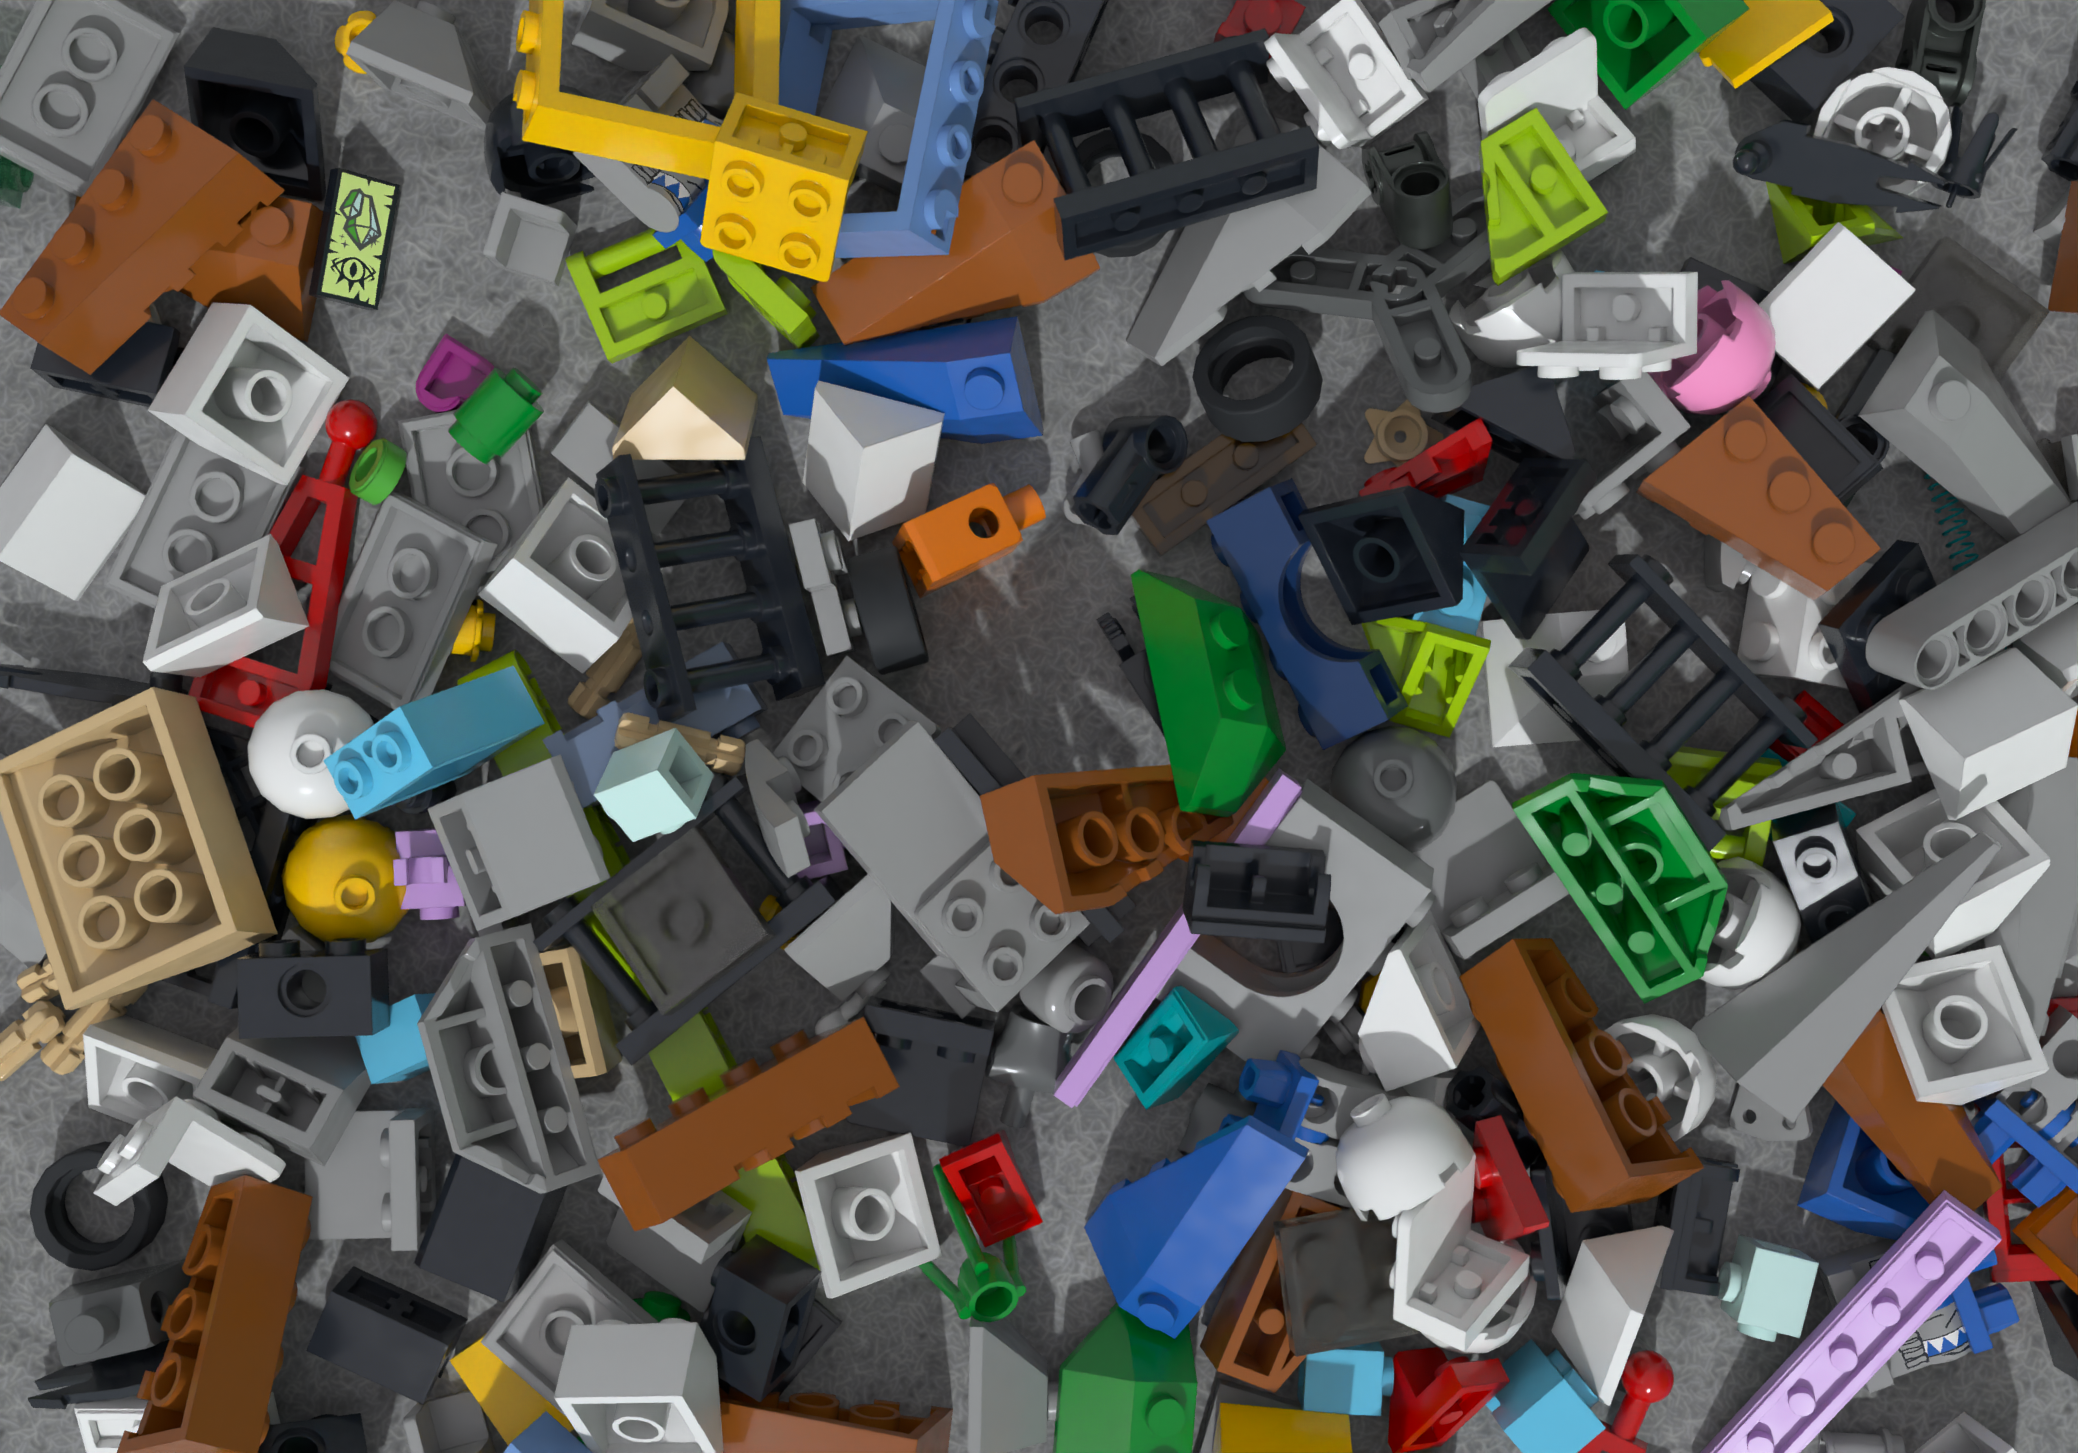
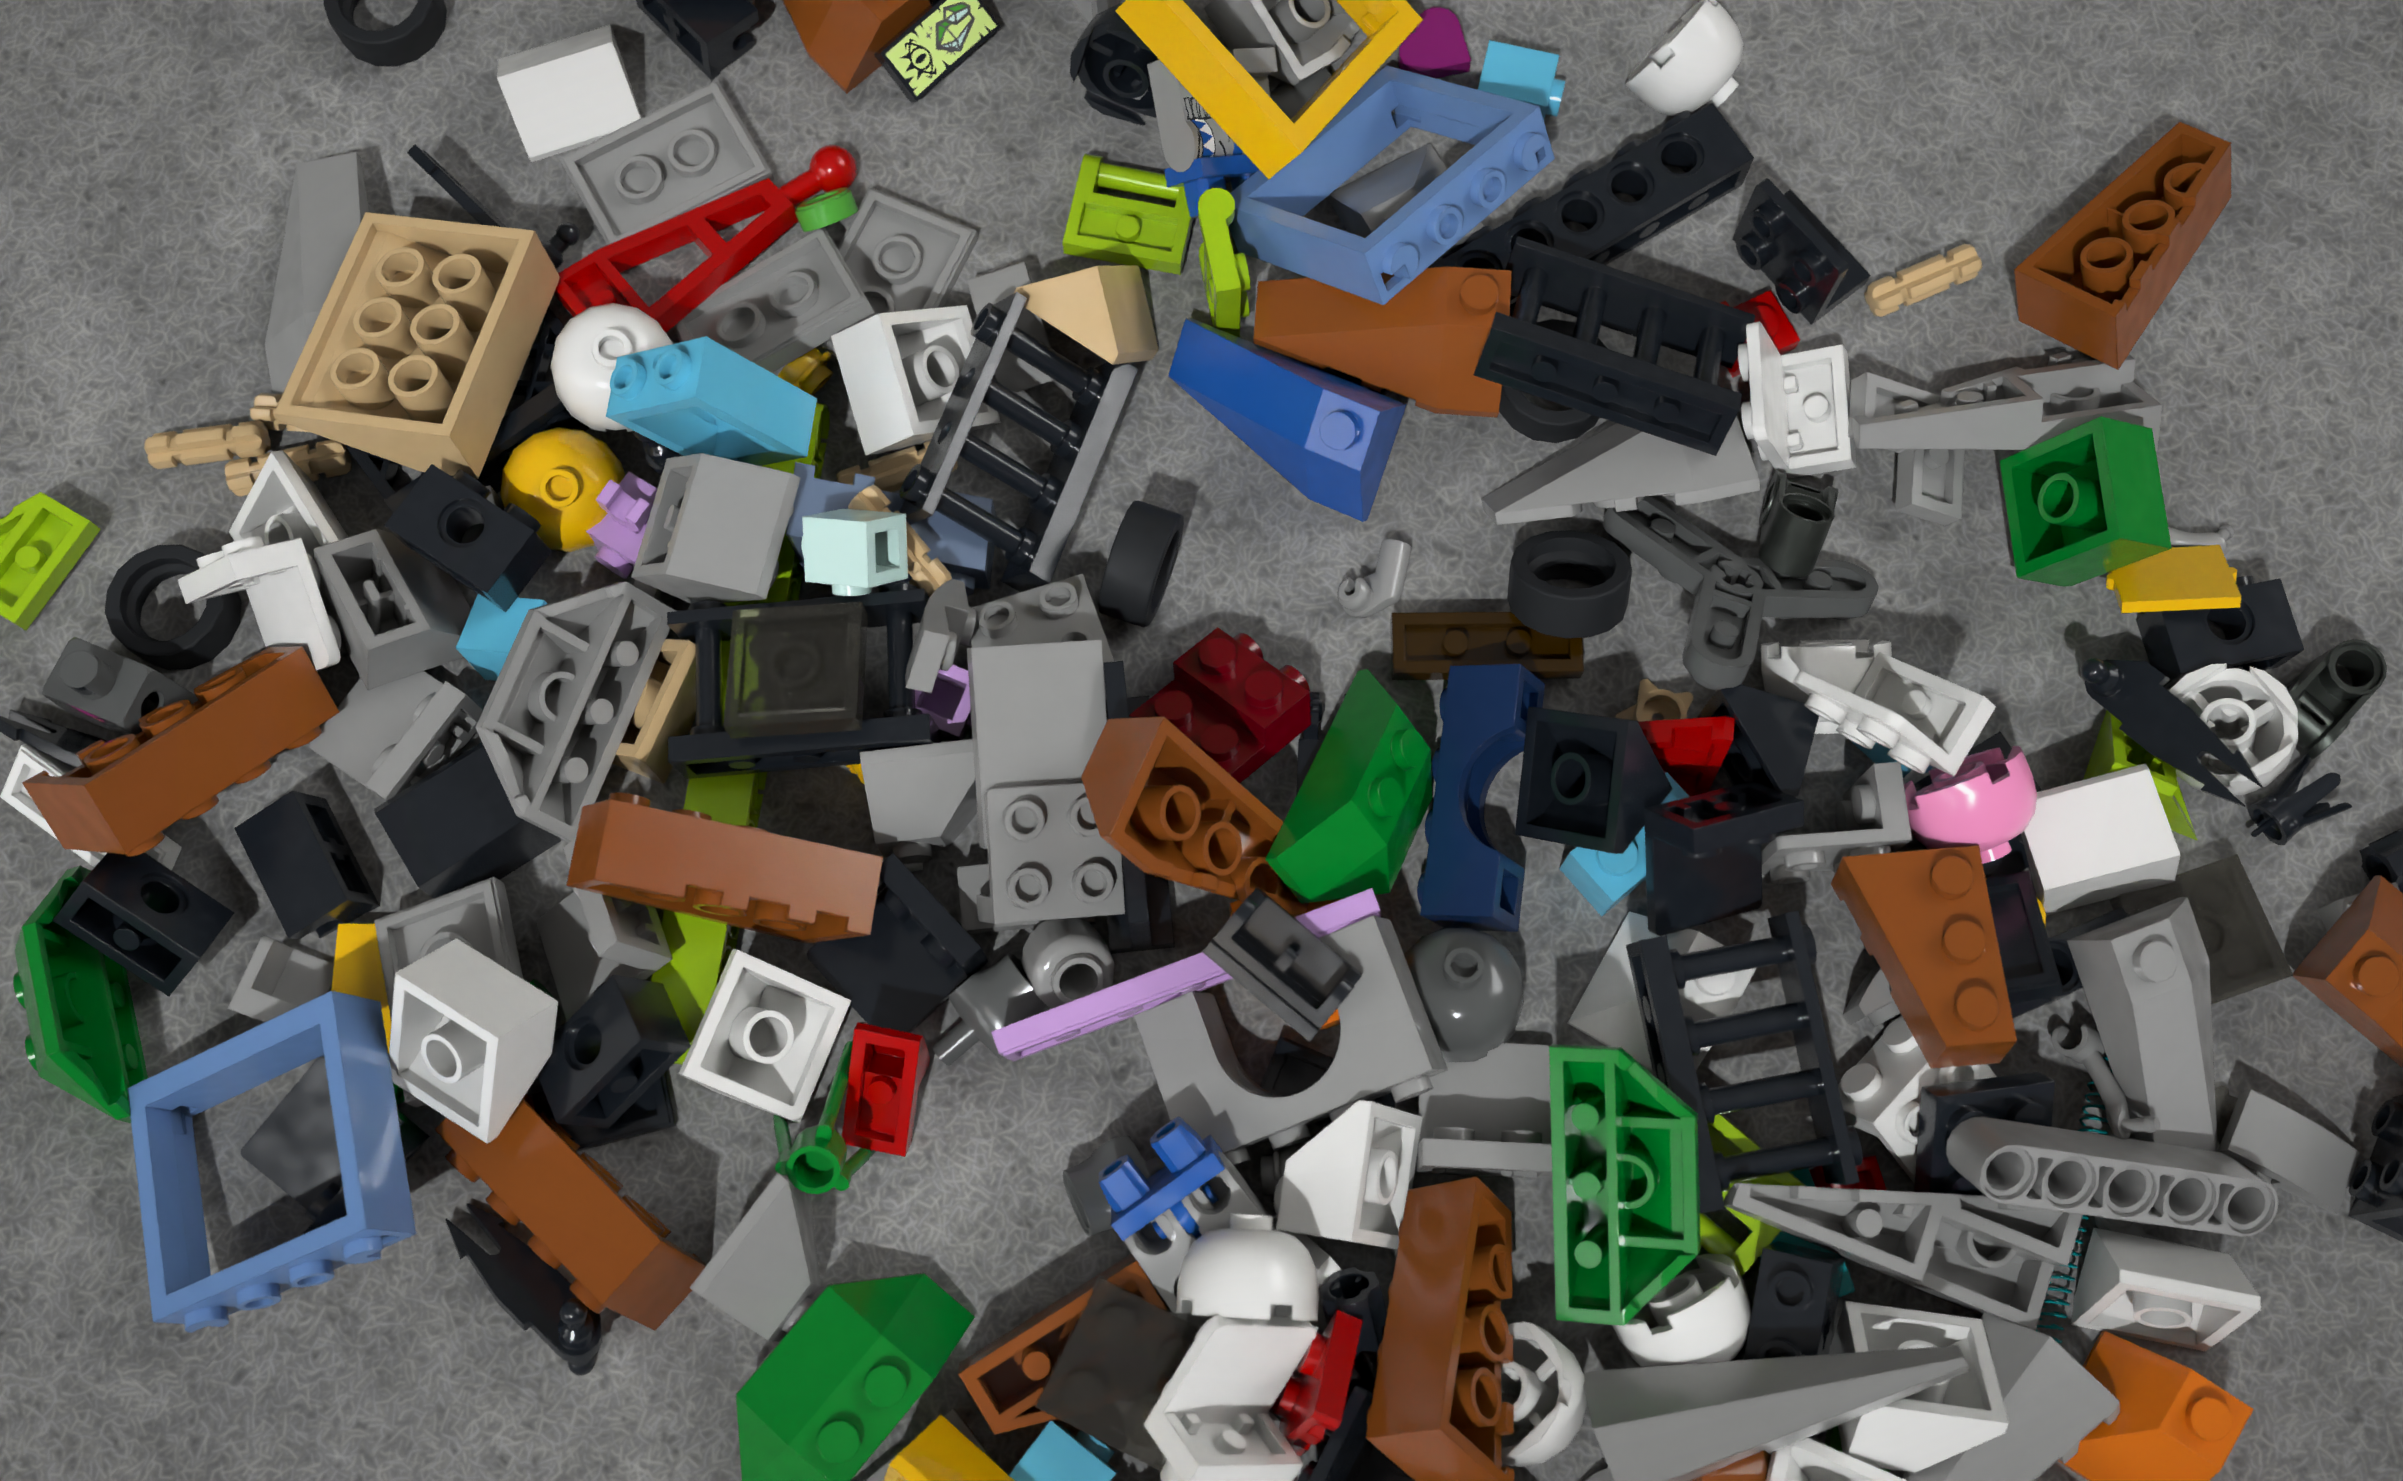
camera: 40 degrees right, 15 degrees down
(224, 611) = (629, 230): white slope -> none
(249, 391) = (776, 91): white slope -> none
(450, 375) = (938, 187): magenta tile -> none
(496, 414) = (947, 223): green brick -> none
(530, 239) = (1069, 120): light grey panel -> none
(780, 186) = (1285, 171): yellow bracket -> none
(820, 563) = (1110, 494): light grey plate -> none
(870, 458) = (1213, 441): white slope -> none
(943, 548) = (1243, 548): orange torso -> none
(1046, 690) = (1233, 702): none -> dark red plate
(1133, 458) = (1413, 586): black piece -> none
(1173, 1047) = (1122, 1079): teal slope -> none
(1188, 1220) = (1028, 1221): blue wedge -> none
(1431, 667) = (1559, 913): lime slope -> none
(1532, 196) = (1894, 584): lime wing -> none
(1565, 92) = (1945, 542): white bracket -> none
(1958, 511) = (2090, 1054): none -> light grey piece
(1991, 731) = (2022, 1286): white slope -> none

